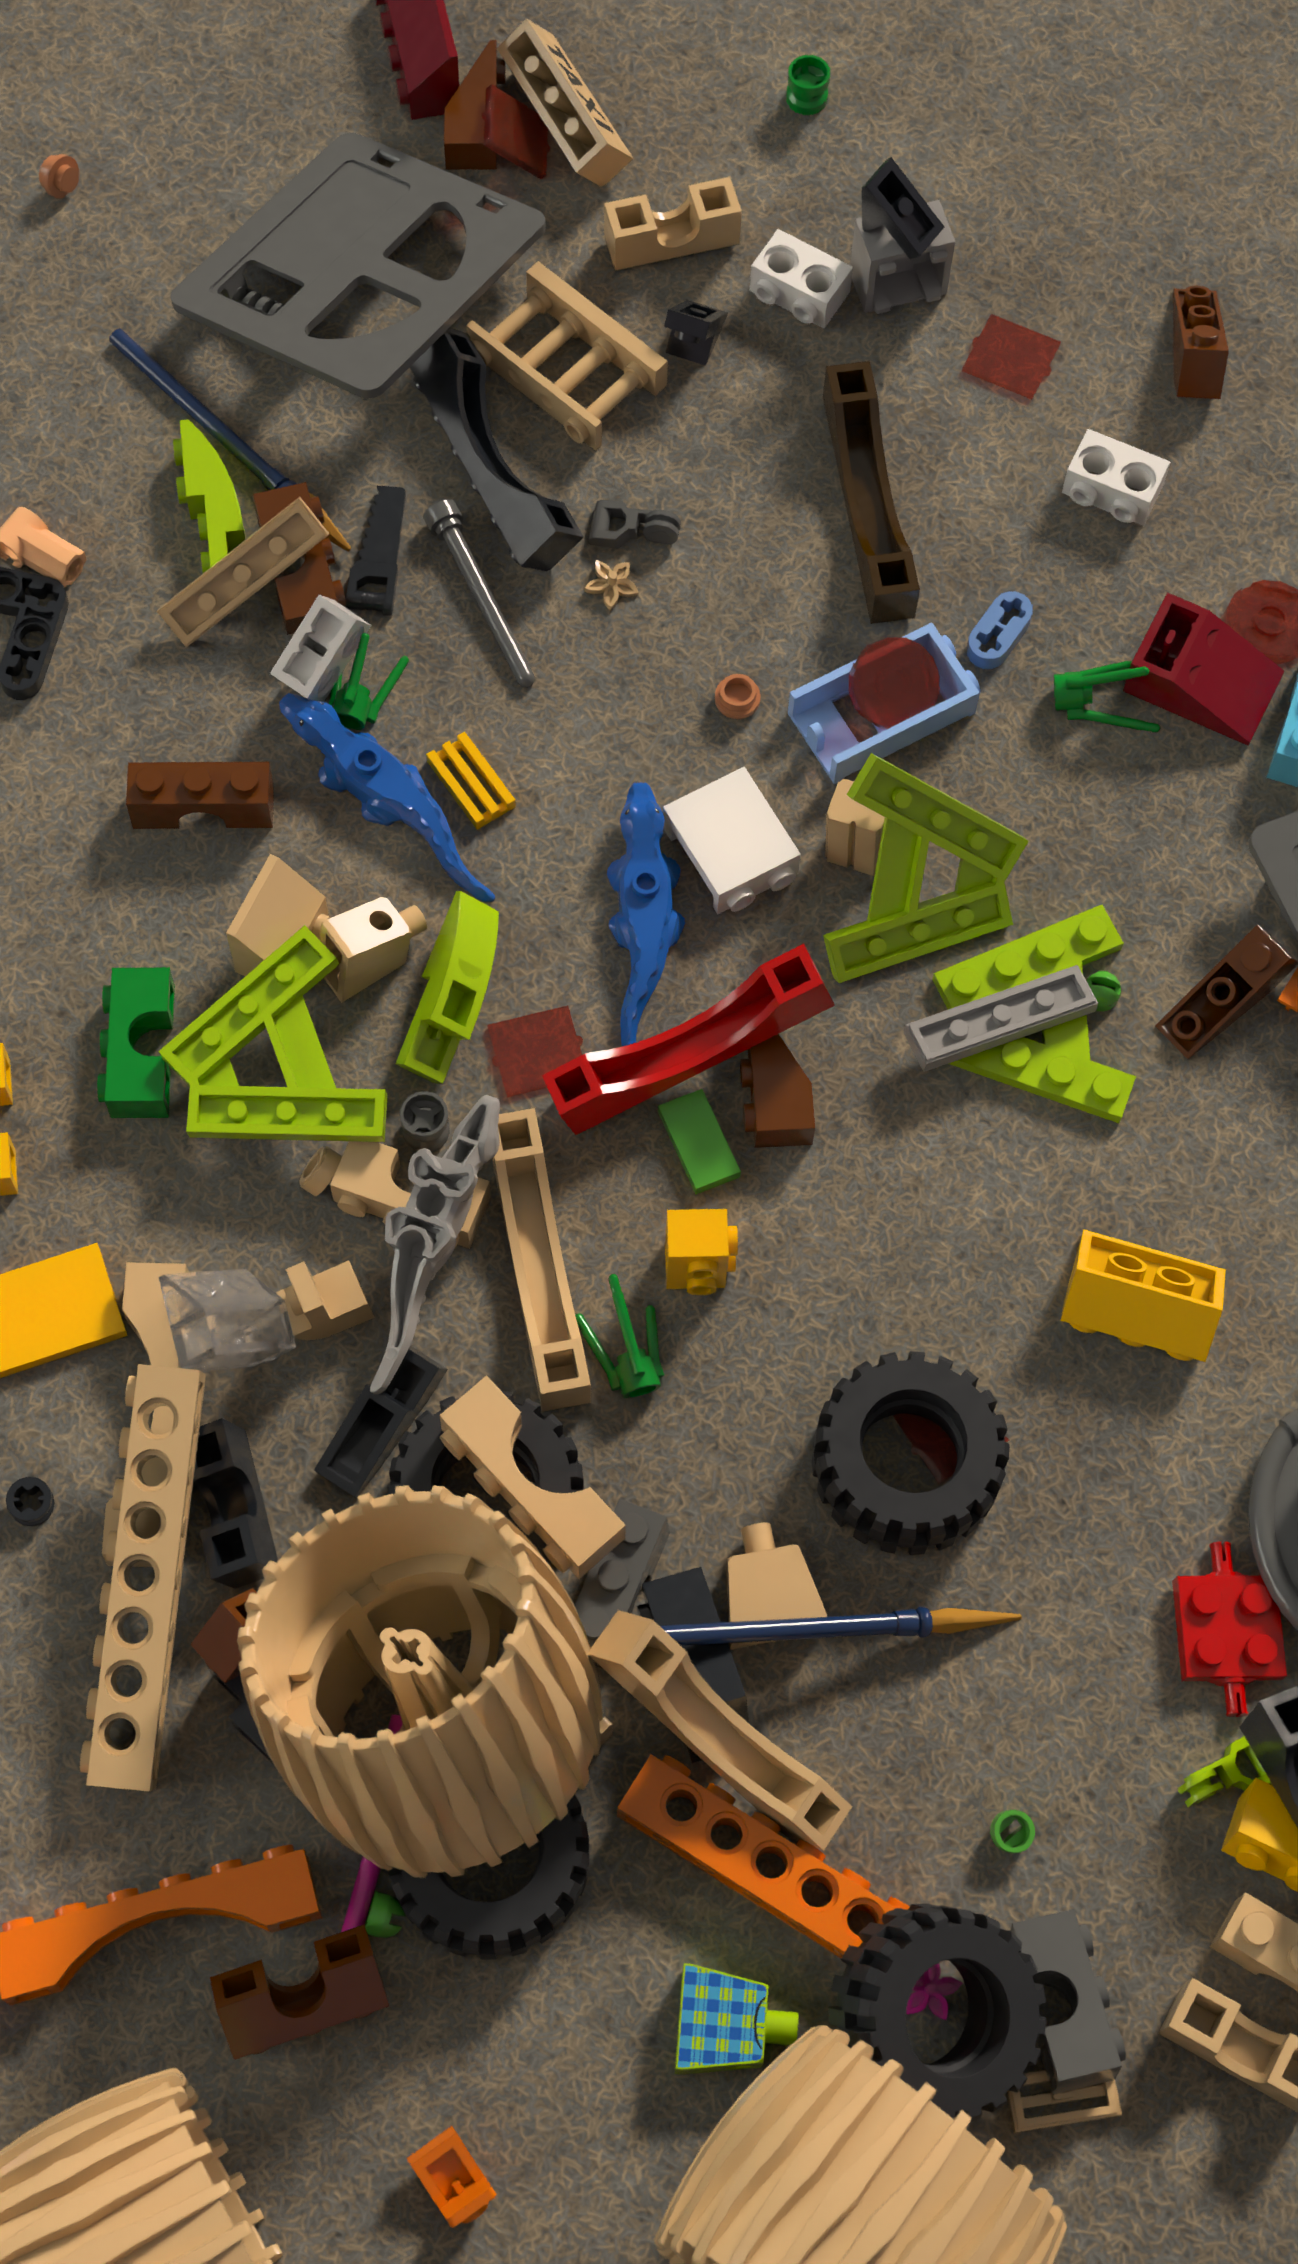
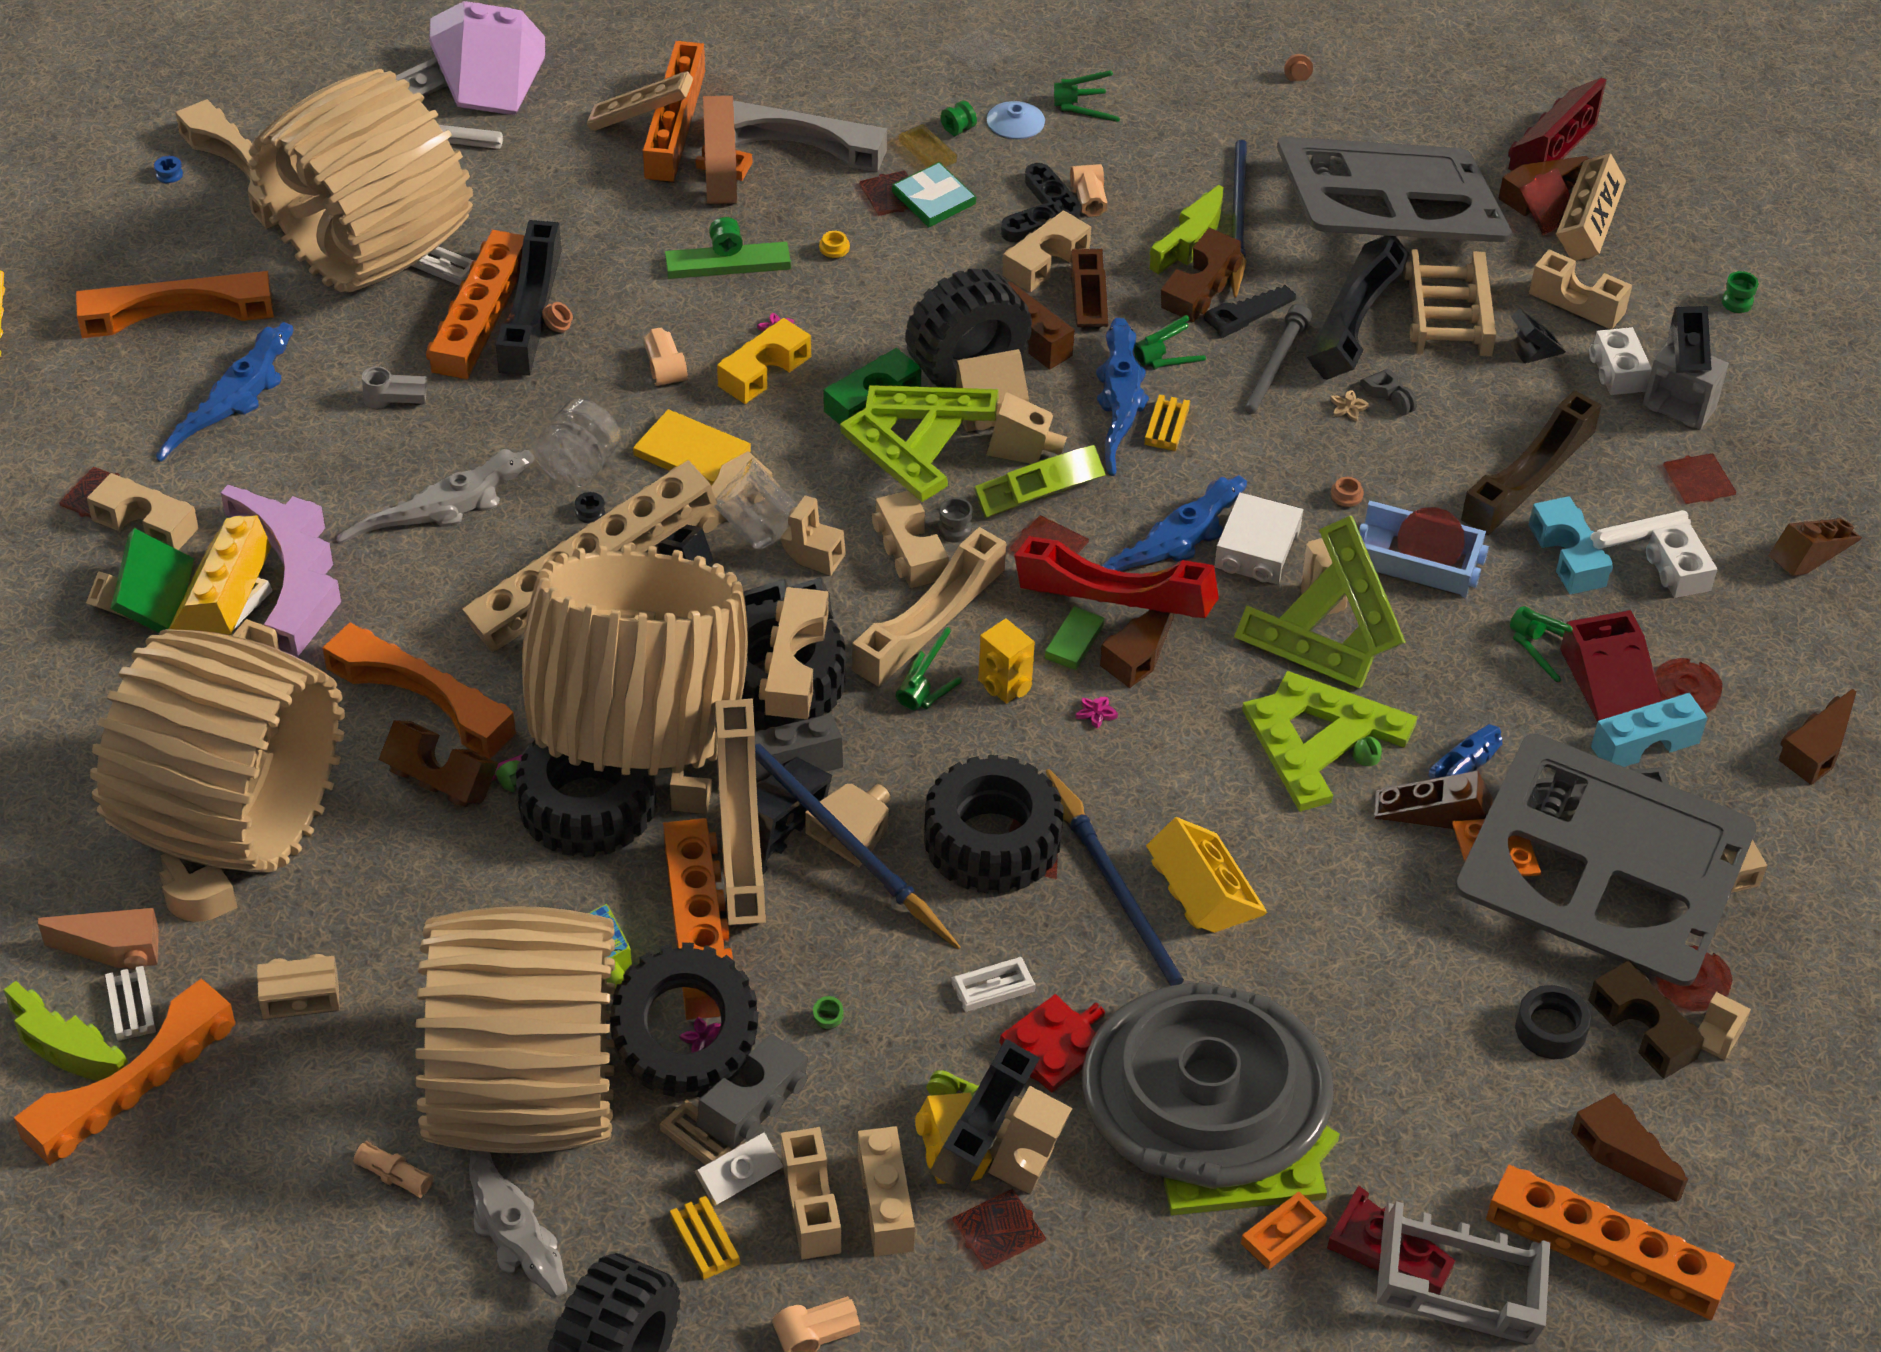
camera: 50 degrees right, 20 degrees down
(96, 713) = (1030, 260): none -> tan arch
(185, 879) = (951, 309): none -> black tyre
(198, 685) = (1089, 287): none -> reddish brown slope
(243, 572) = (1165, 255): tan tile -> none
(320, 649) = (1158, 307): white brick -> none
(320, 1170) = (877, 493): tan tile -> none
(429, 1224) = (894, 540): light grey animal -> none
(452, 2178) = (401, 889): orange bracket -> none
(818, 1206) = (1097, 710): none -> dark pink plant
(976, 538) = (1563, 525): none -> medium azure arch
(984, 1362) = (1080, 824): none -> dark blue piece
(1000, 1018) = (1292, 709): light grey tile -> none
(1007, 635) = (1526, 573): medium blue beam -> none
(1052, 479) = (1636, 530): none -> white axle
(1088, 1664) = (995, 989): none -> white tile
(1145, 2094) = (738, 1169): none -> white plate
(1195, 904) = (1469, 754): none -> blue hinge
(1245, 2208) = (691, 1211): none -> yellow tile

